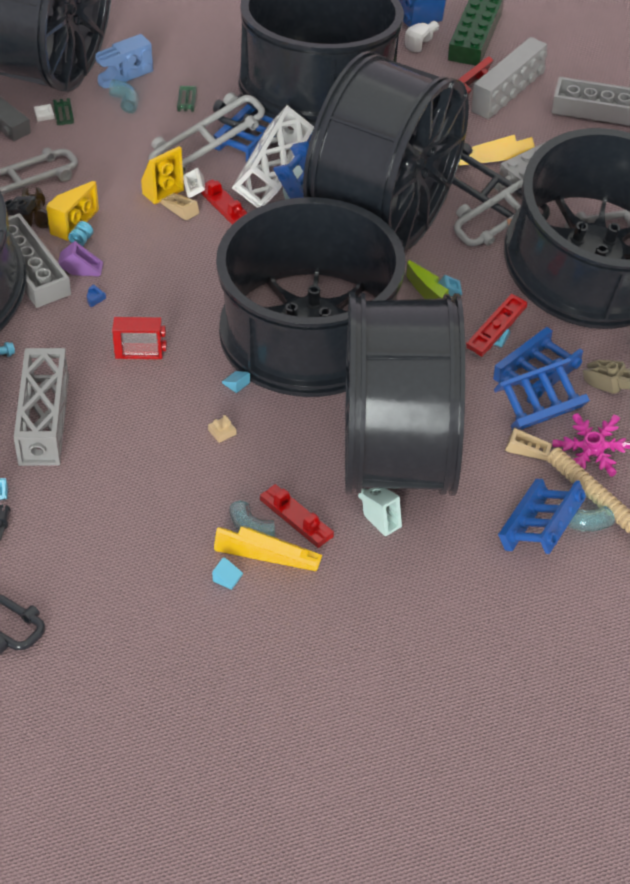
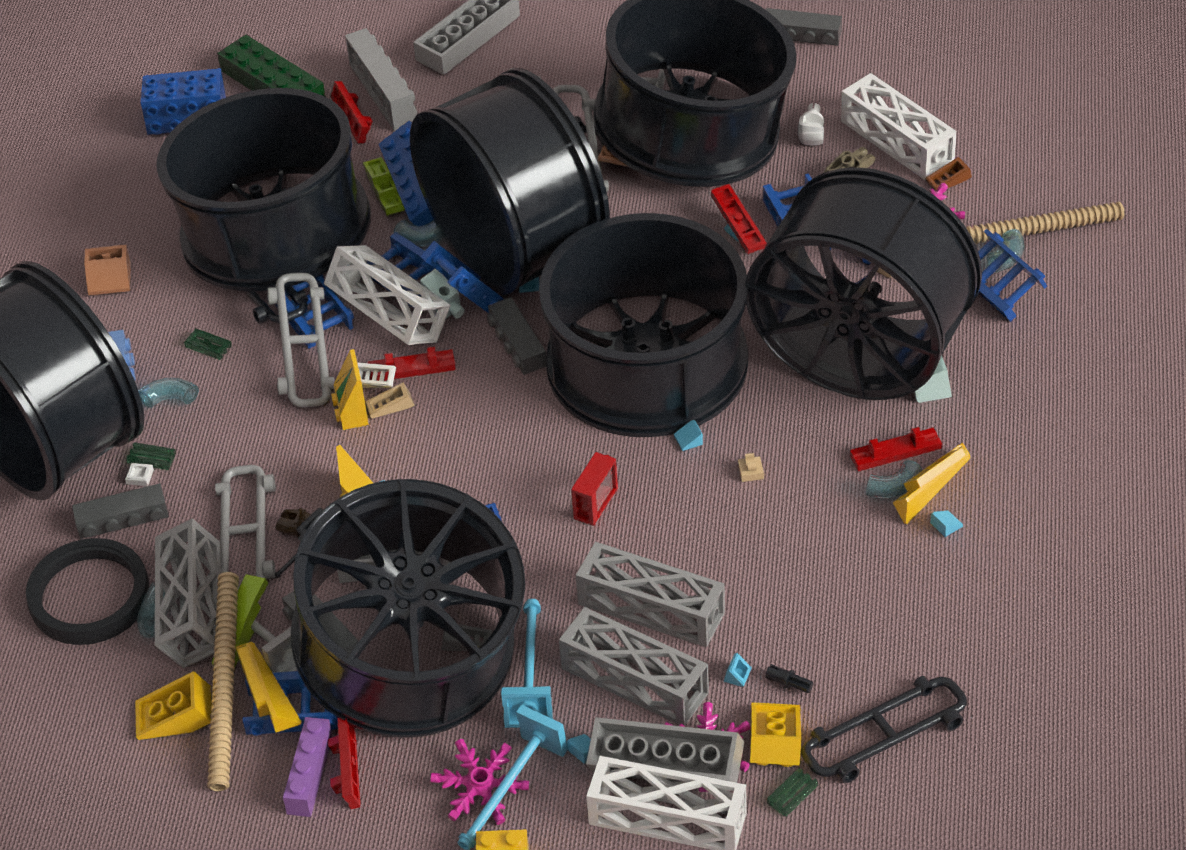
camera: 60 degrees left, 0 degrees up
(222, 24) = (107, 269): none -> nougat slope

